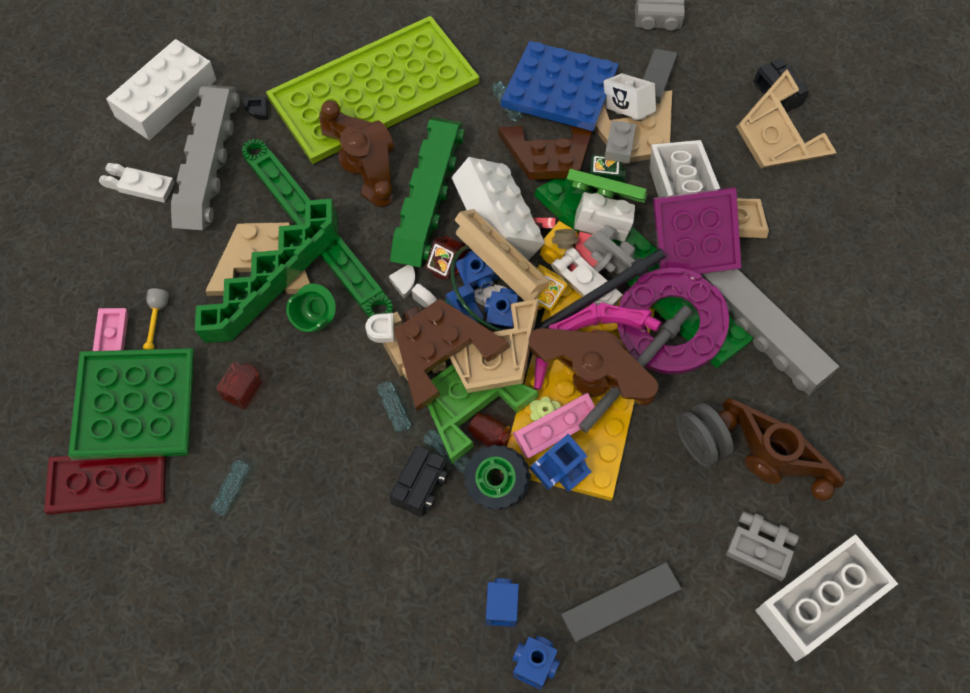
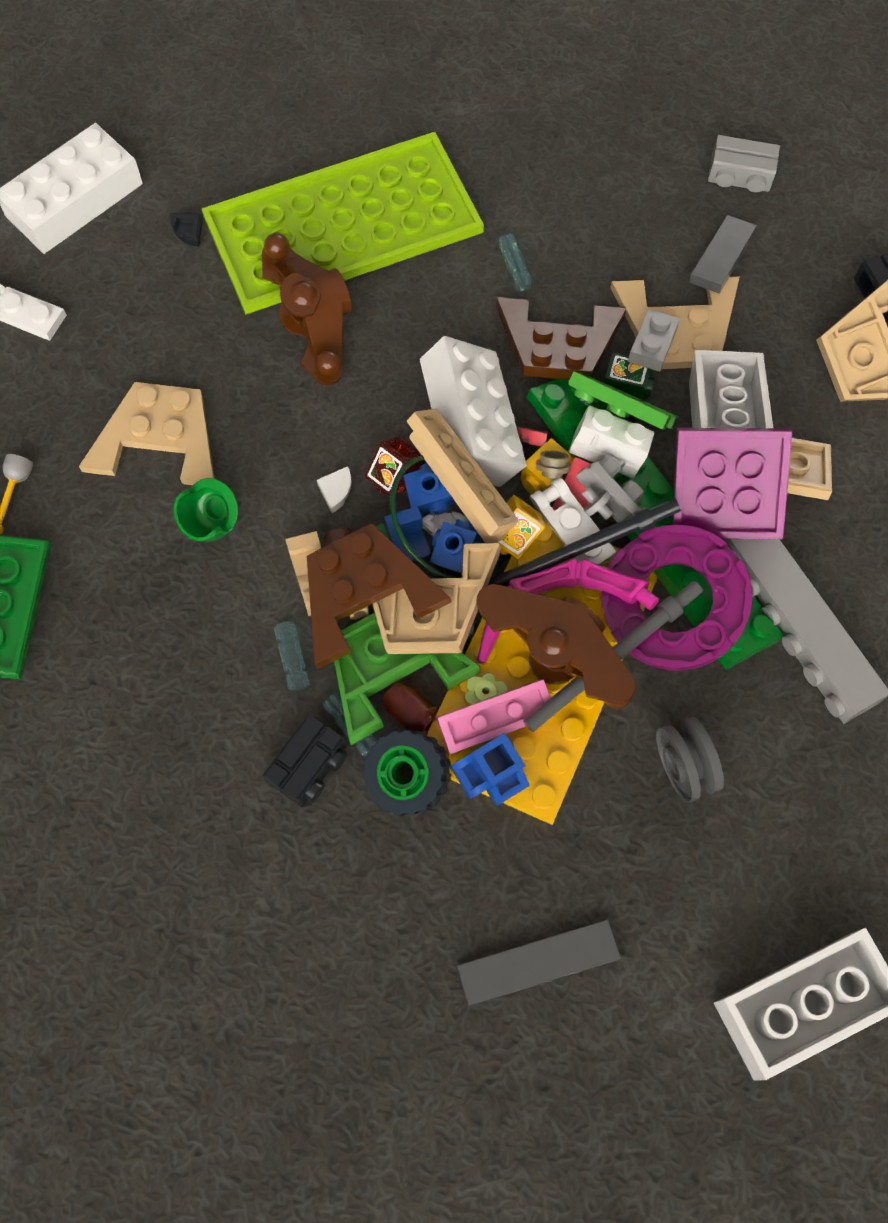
camera: 10 degrees right, 5 degrees up
(204, 157) = (106, 286): light grey brick -> none
(230, 487) = (66, 730): clear light blue axle -> none
(239, 384) = (100, 597): clear red brick -> none
(270, 274) = (161, 455): green brick -> none
(337, 254) = (235, 405): green plate -> none
(381, 328) = (290, 550): white tile -> none
(423, 296) = (355, 513): white tile -> none
(427, 192) = (385, 373): green brick -> none
(502, 603) = (382, 938): blue brick -> none
(535, 673) = (405, 1040): blue brick -> none
(559, 85) = (589, 250): blue plate -> none
(630, 96) = (679, 278): white brick -> none
(759, 552) = (734, 927): light grey plate -> none
(770, 465) = (768, 813): reddish brown piece -> none

